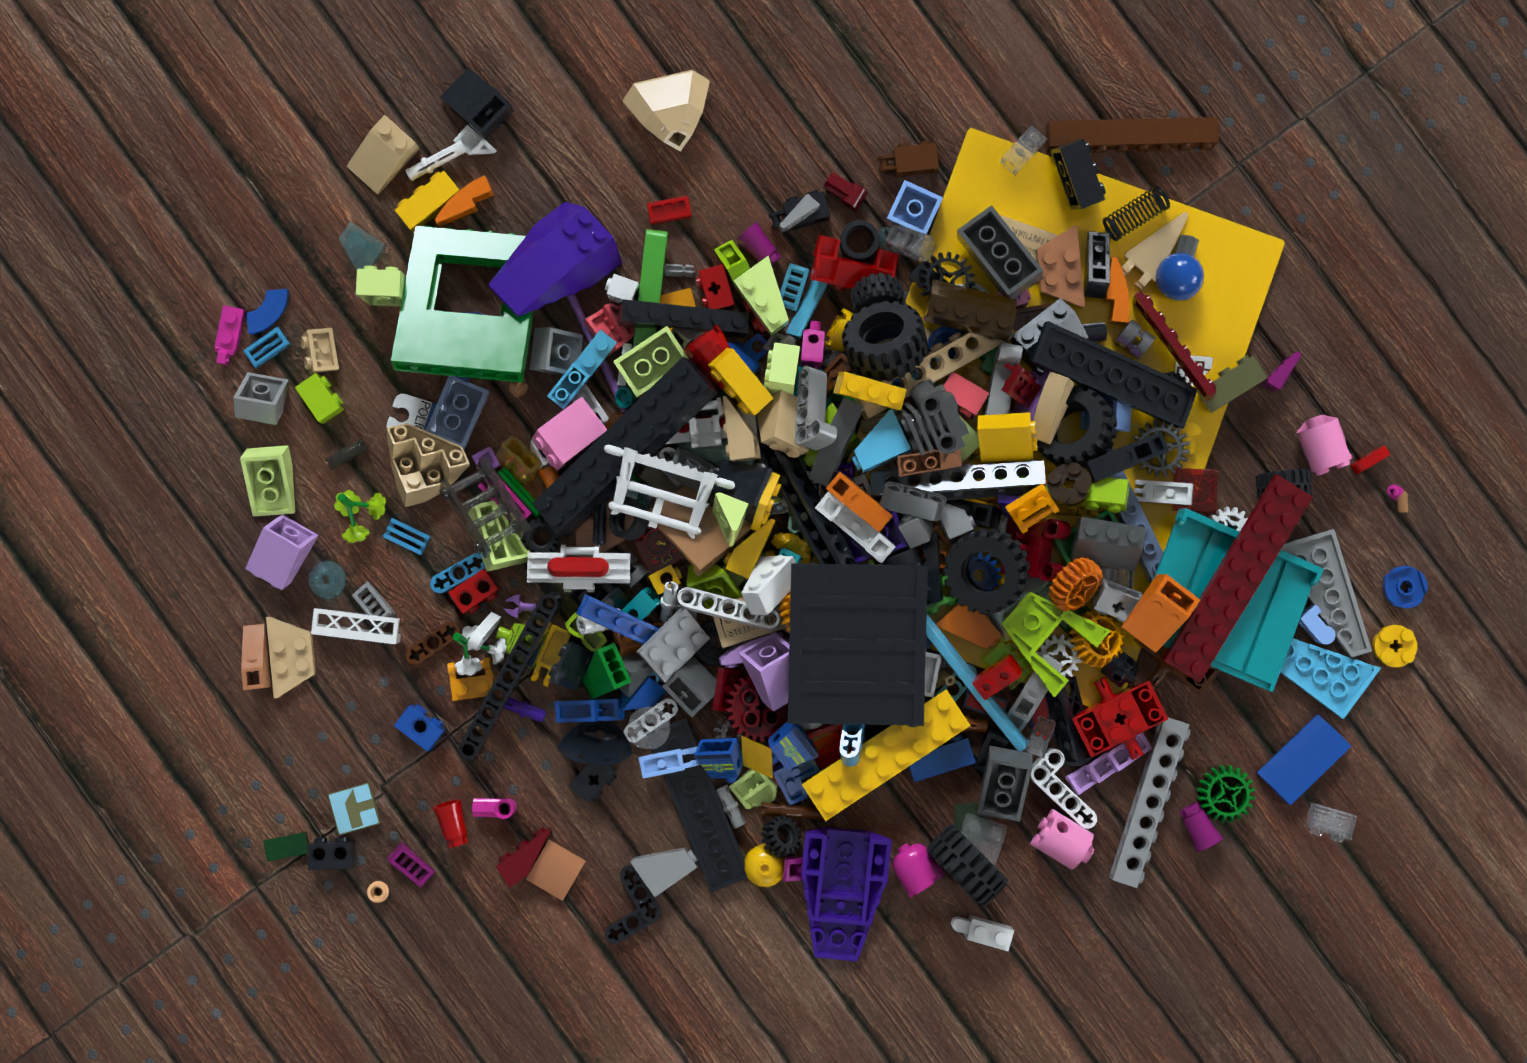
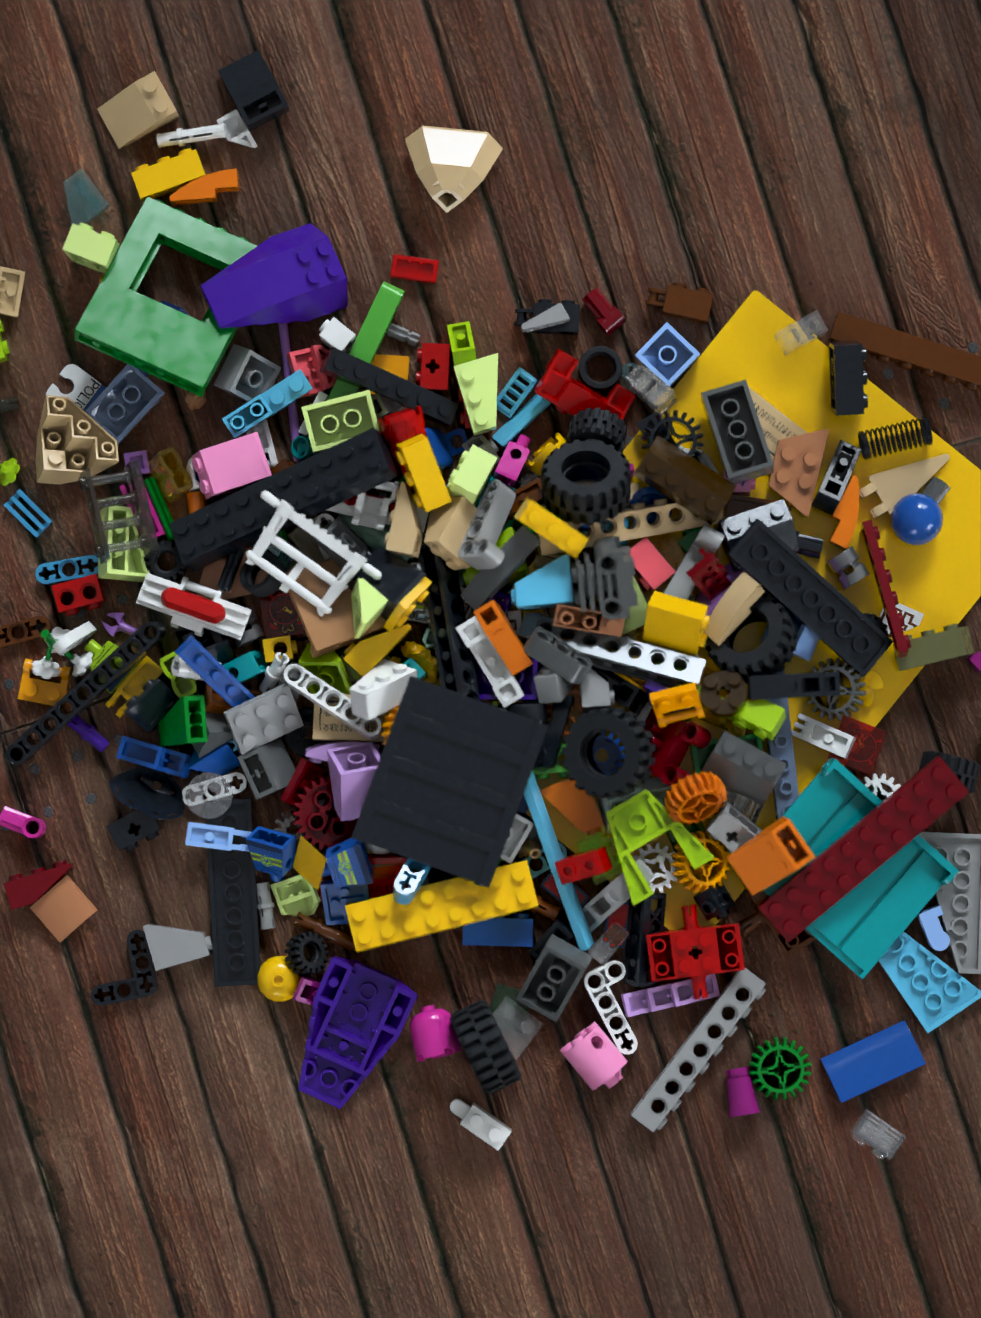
camera: 20 degrees right, 0 degrees up
(758, 244) = (494, 336): magenta plant -> none

